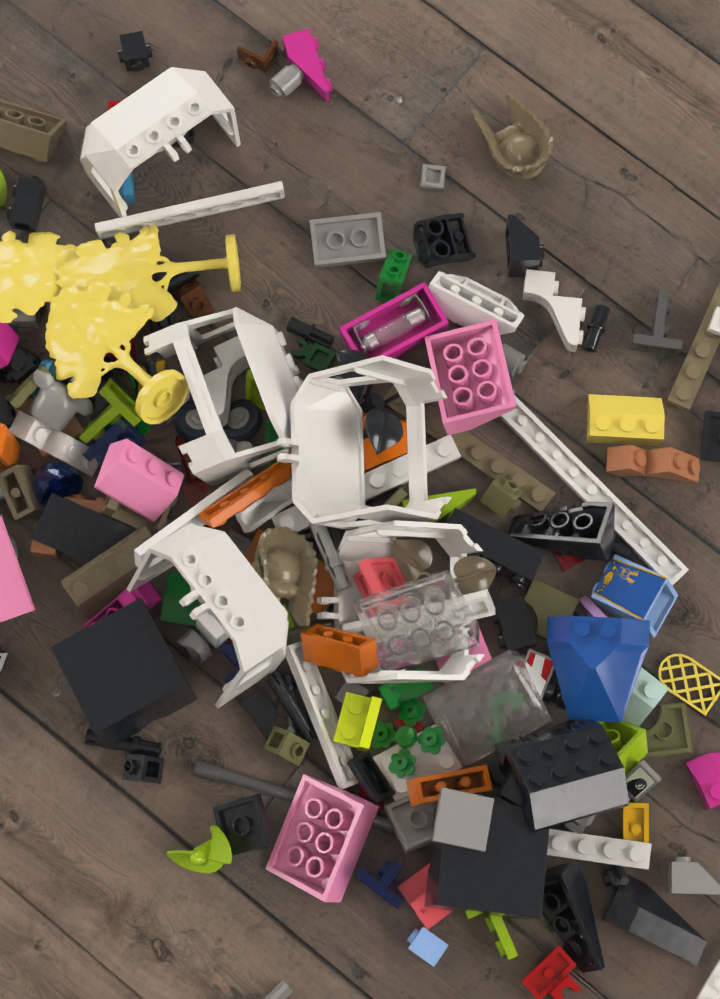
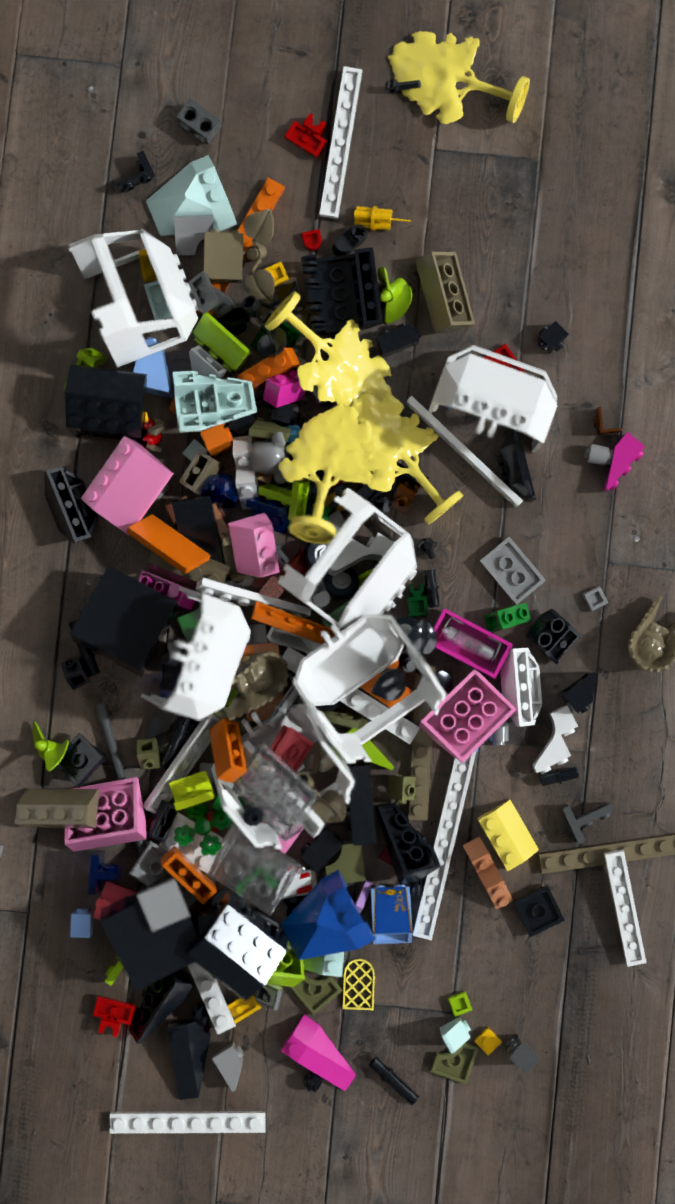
camera: 55 degrees right, 10 degrees up
(72, 570) = (168, 544): none -> orange tile
(239, 168) = (515, 466): none -> black wedge
(264, 310) = (425, 546): none -> black plate
(281, 885) = (58, 808): none -> dark tan slope
(427, 662) = (252, 815): none -> black plate

